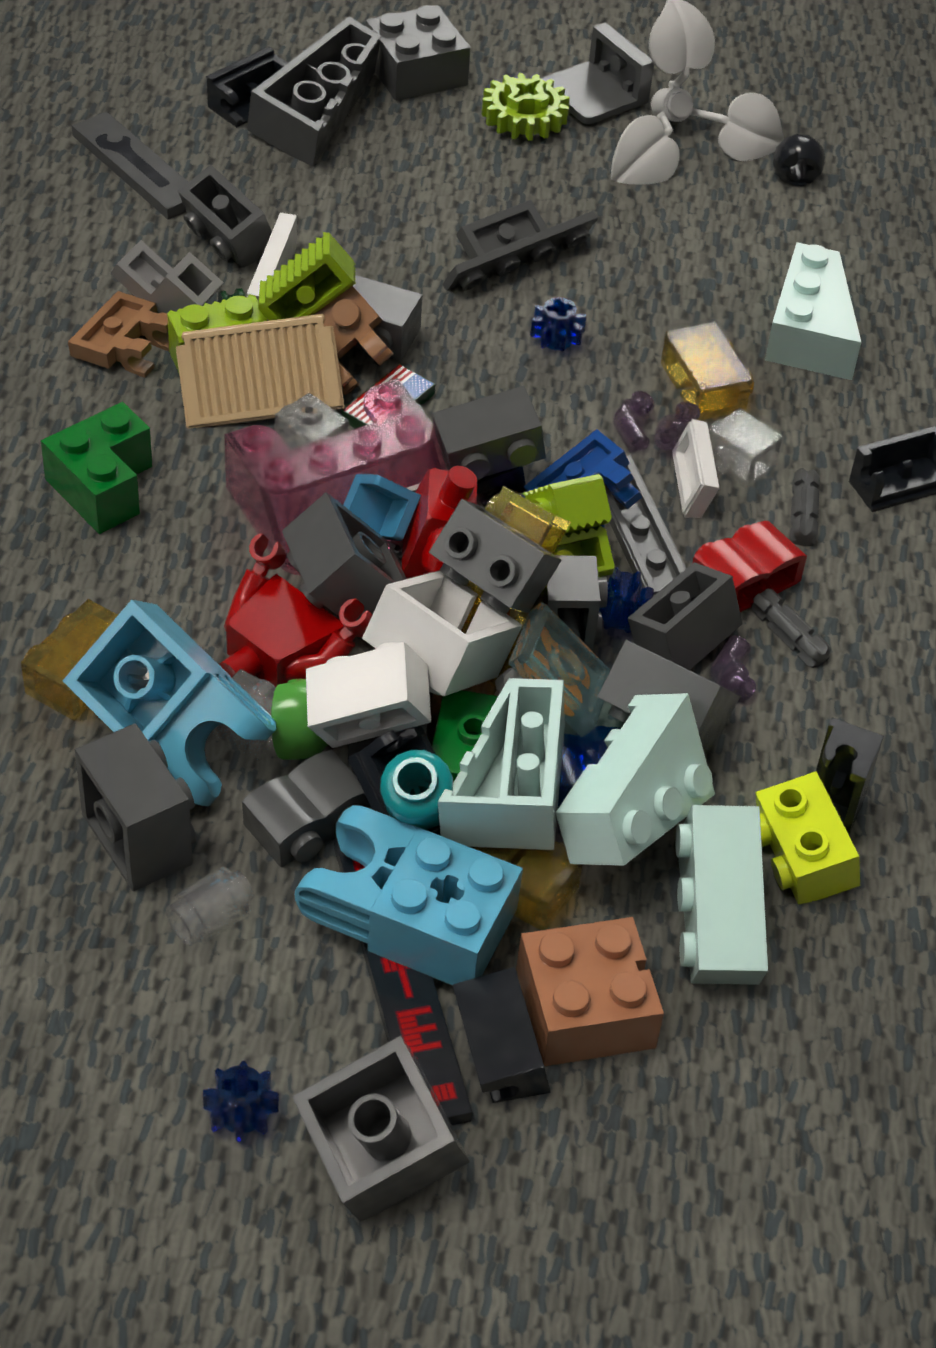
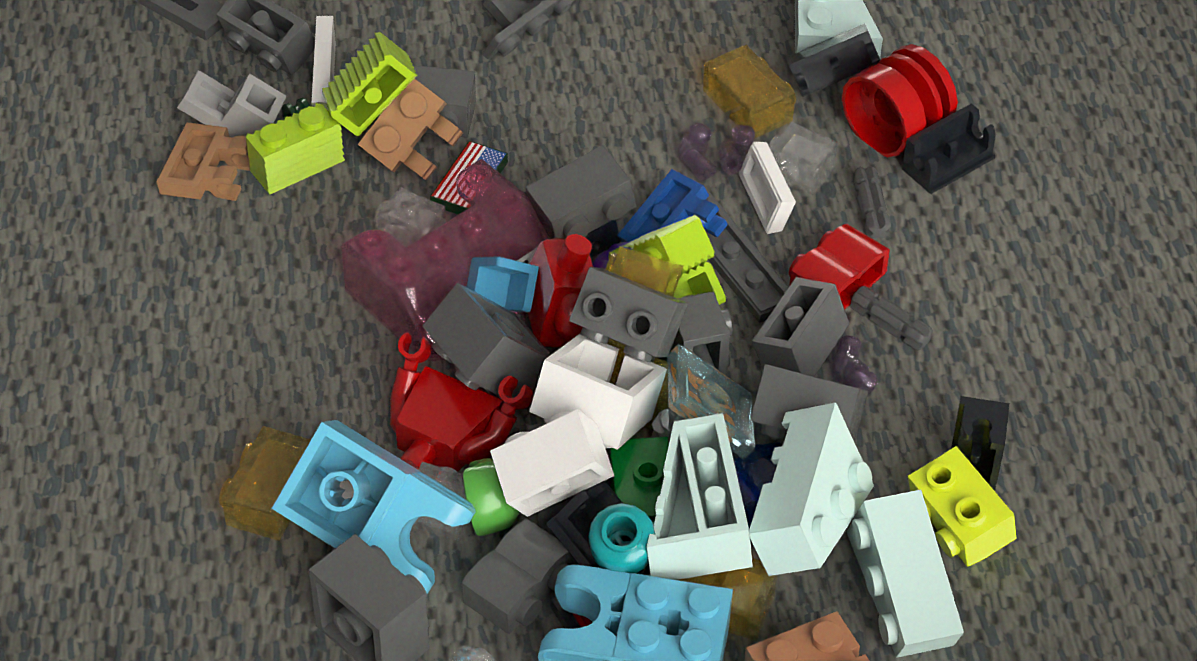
camera: 10 degrees left, 0 degrees up
(98, 465) = (225, 297): green brick -> none
(257, 369) = (344, 174): tan window -> none
(558, 324) = (602, 73): clear blue gear -> none
(624, 598) = (744, 321): clear blue gear -> none
(804, 356) = (833, 60): none -> black hinge
(860, 404) = (898, 98): none -> red wheel

